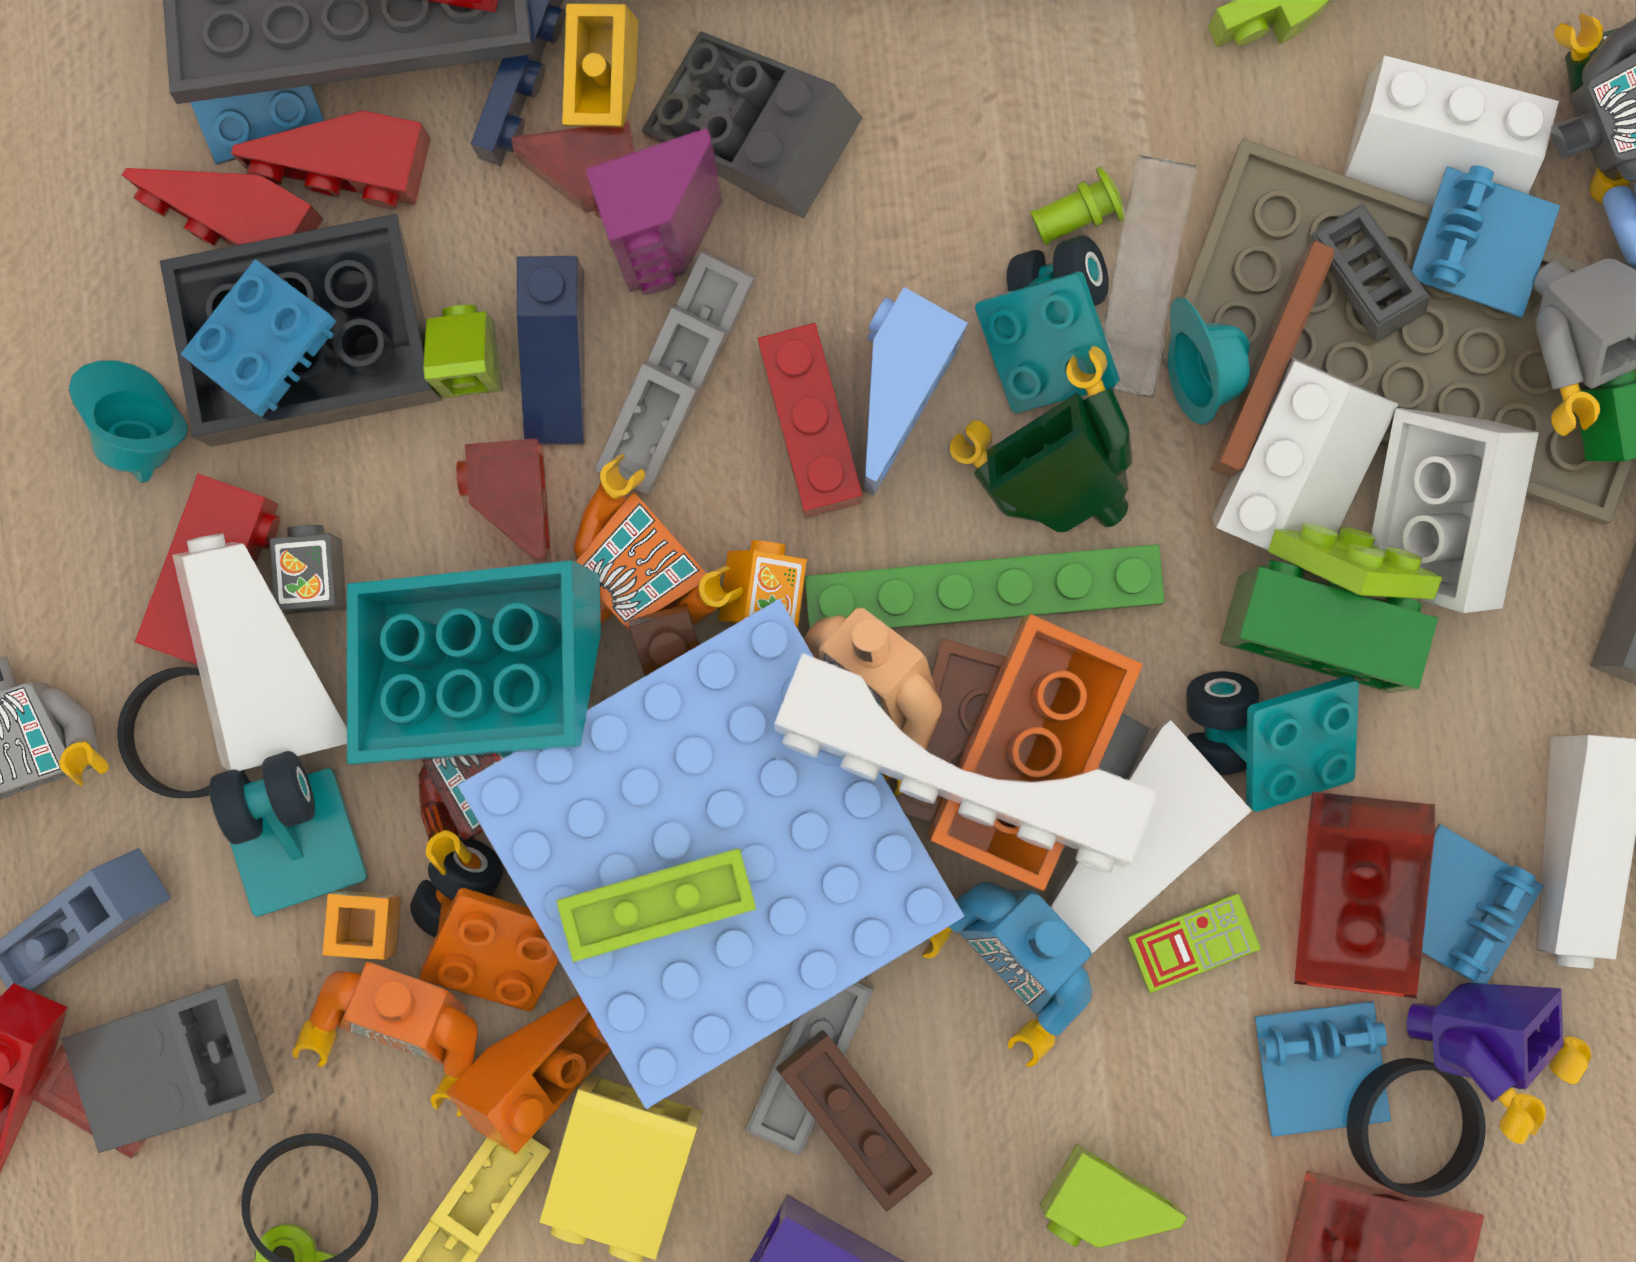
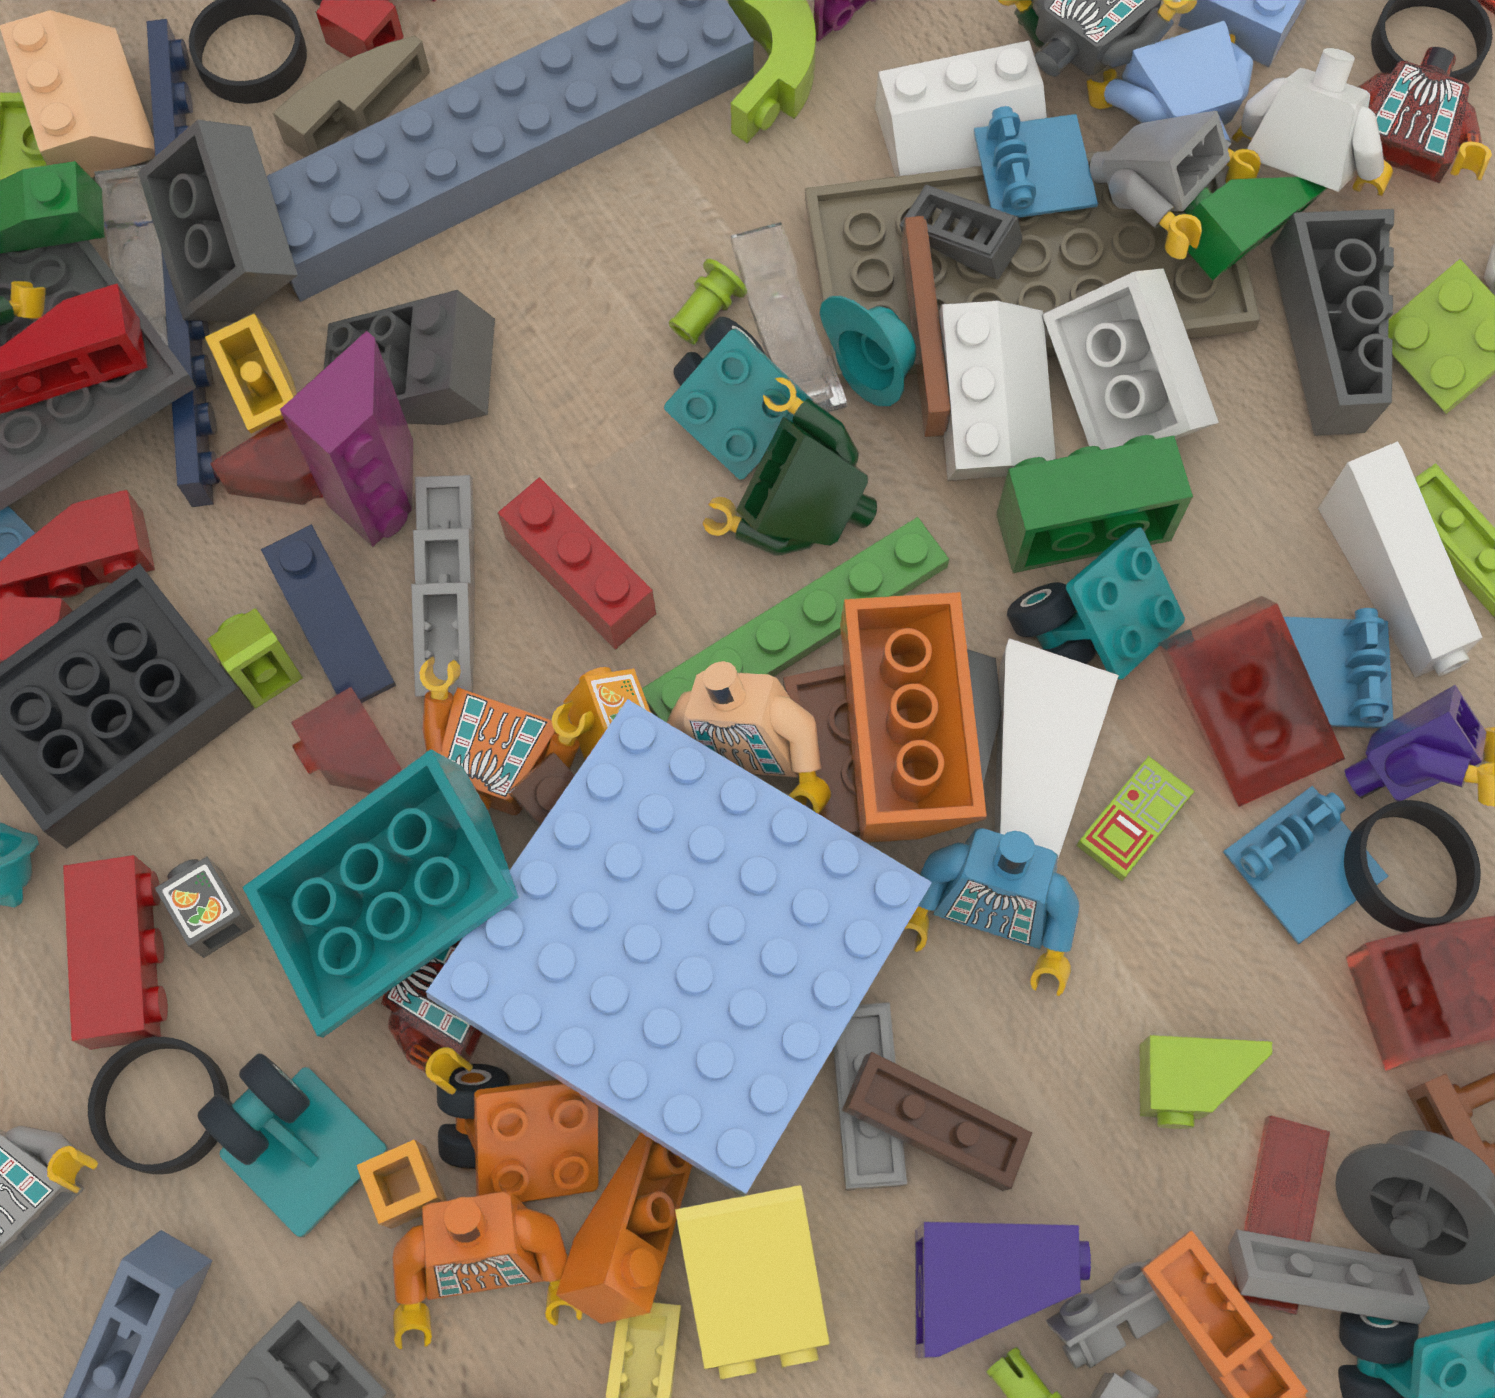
camera: 30 degrees left, 15 degrees down
(249, 661) = (184, 994): white slope -> none
(259, 338) = (65, 715): dark azure hinge -> none
(655, 904) = (656, 997): lime plate -> none
(908, 359) = (632, 466): light blue slope -> none
(1086, 812) = (983, 725): white arch -> none
(1355, 562) = (1084, 429): lime plate -> none

